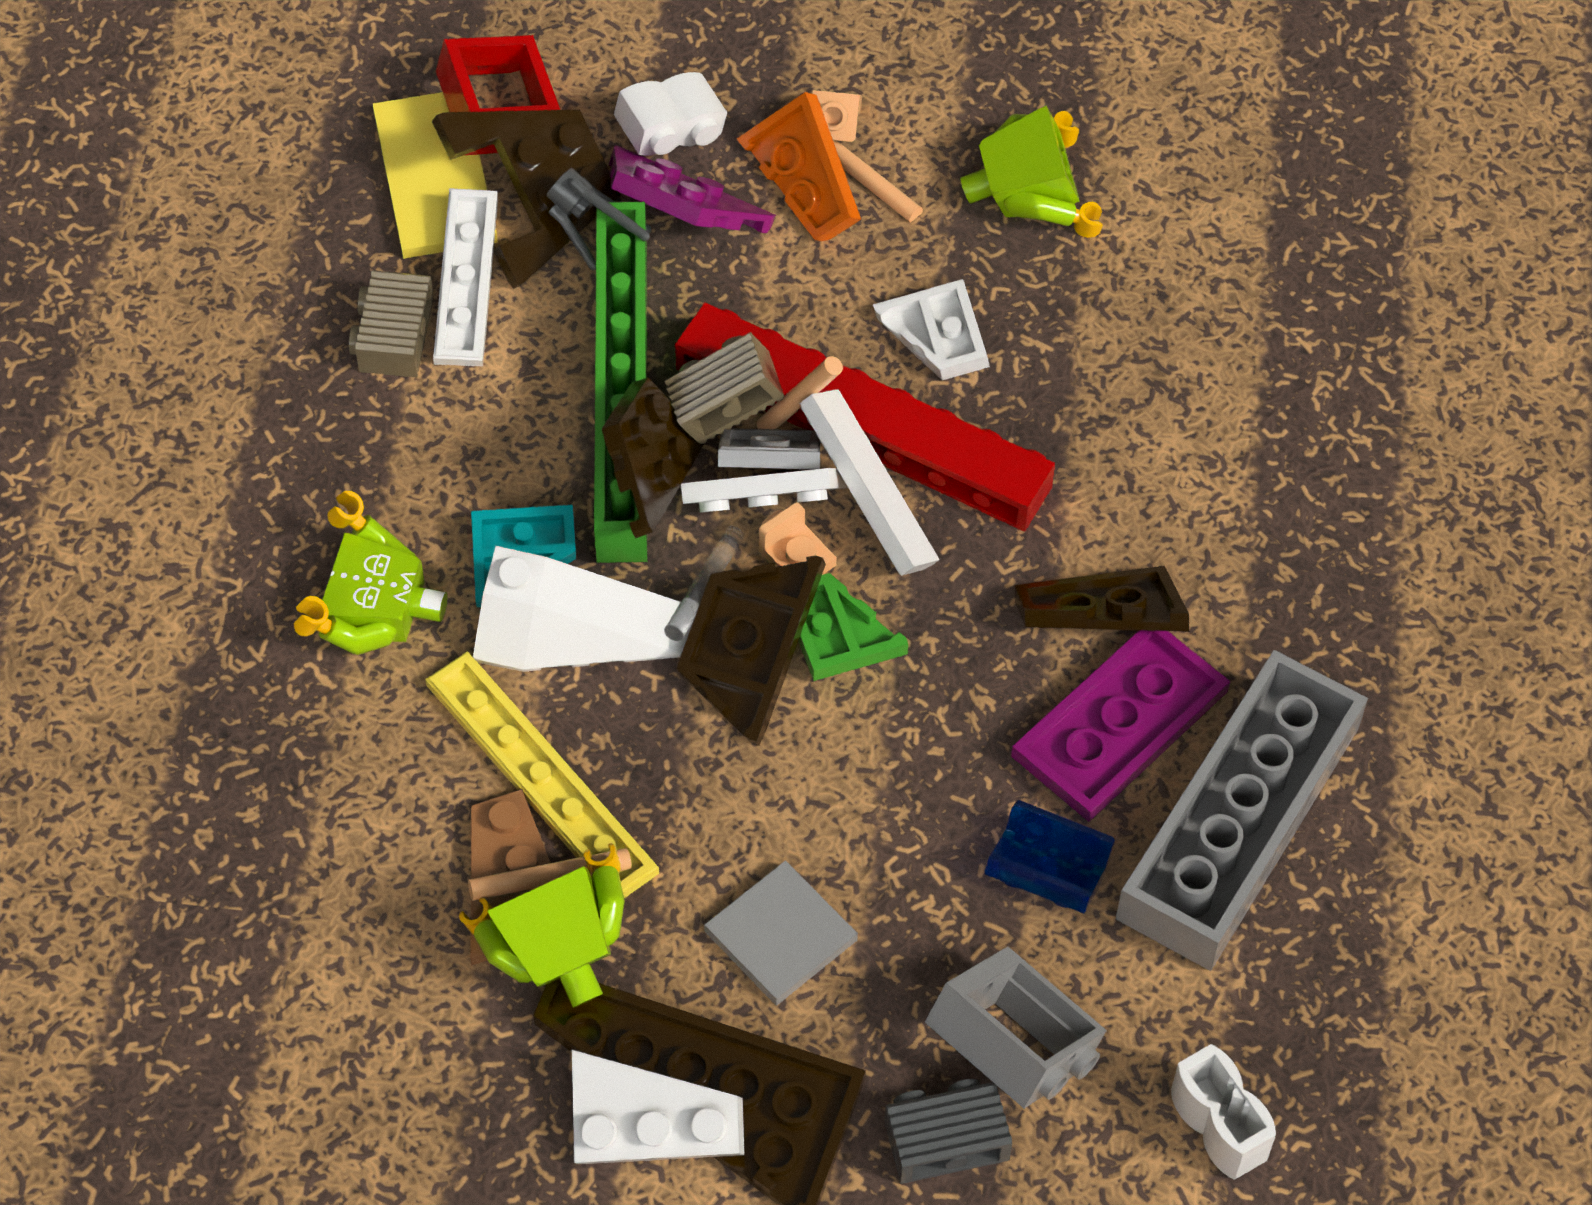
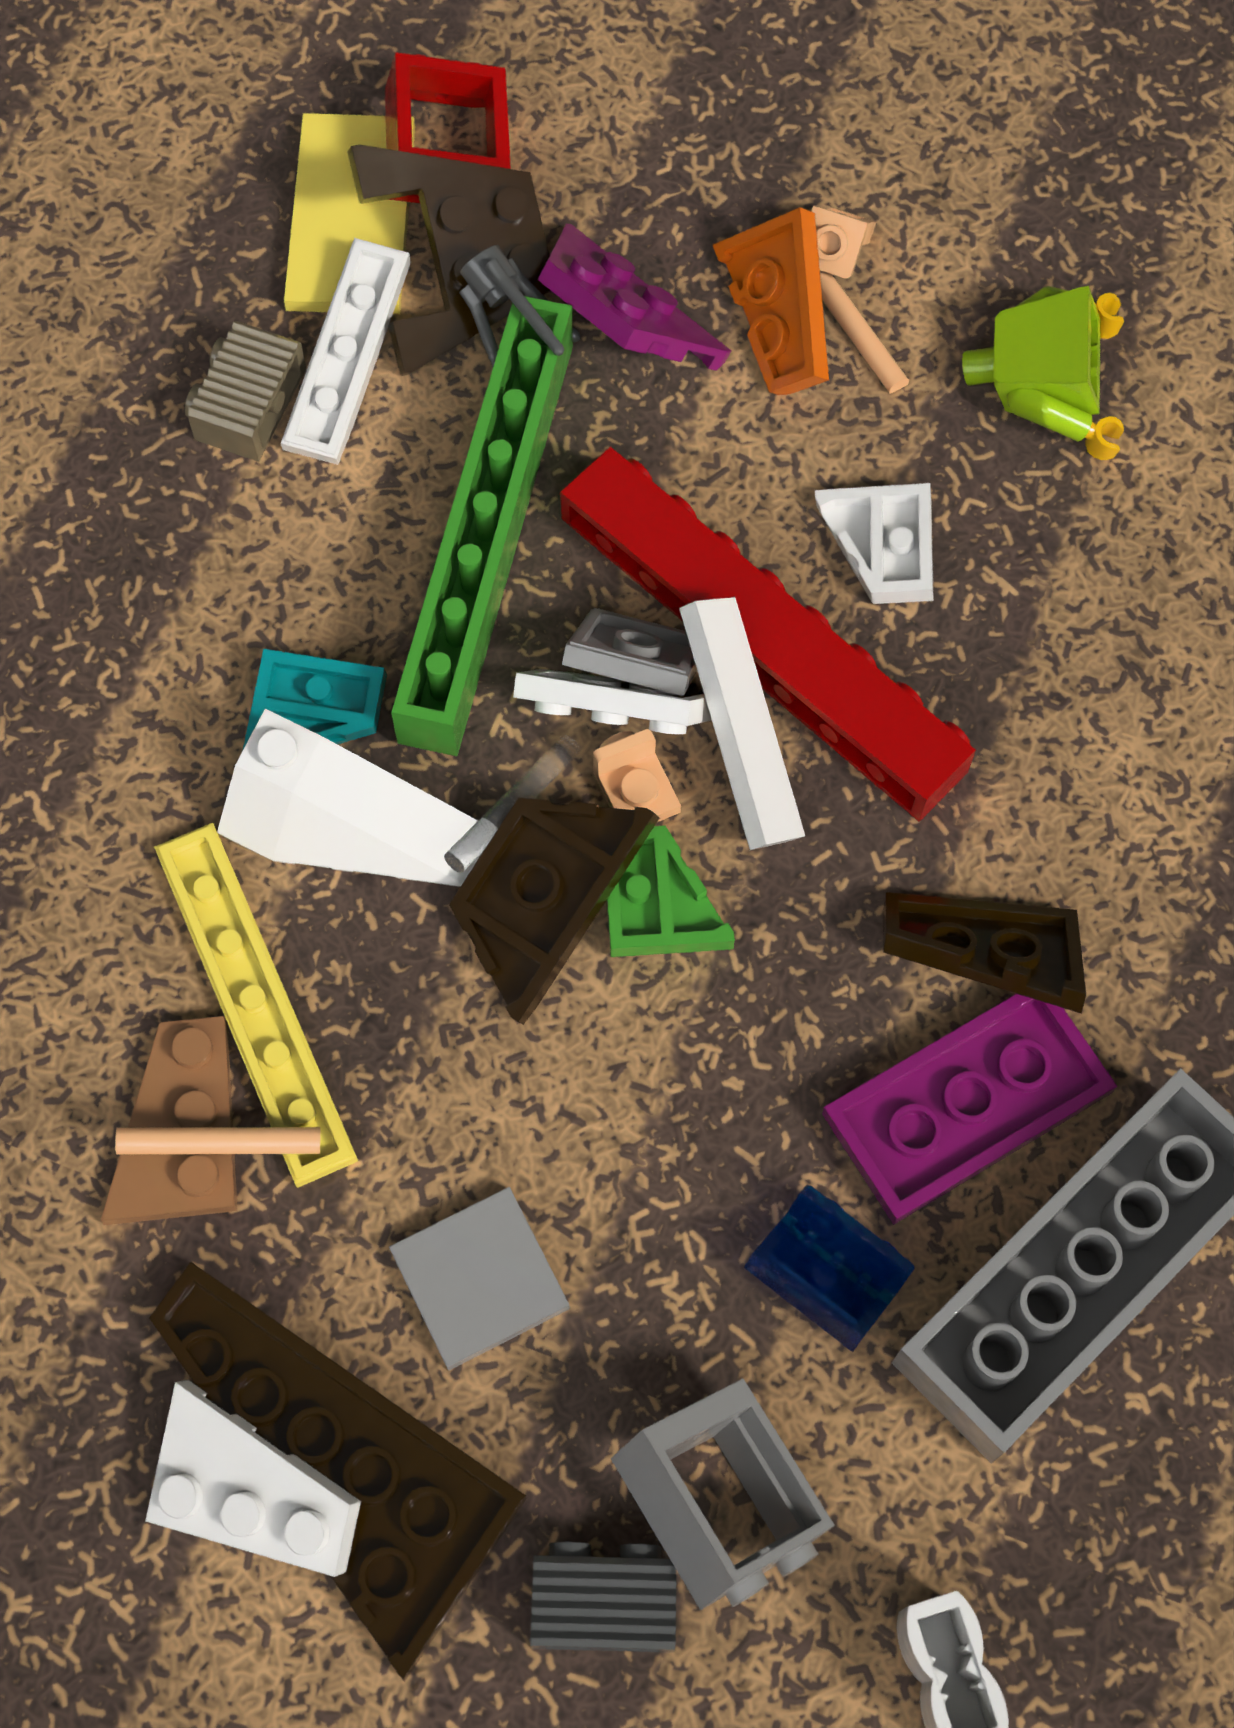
camera: 15 degrees right, 10 degrees up
(371, 587) = (120, 721): lime torso -> none
(556, 928) = (198, 1223): lime torso -> none
(648, 451) = (483, 628): dark brown wing -> none
(670, 113) = (640, 198): white brick -> none
(724, 387) = (598, 563): dark tan brick -> none
(811, 384) = (695, 589): light nougat bar -> none

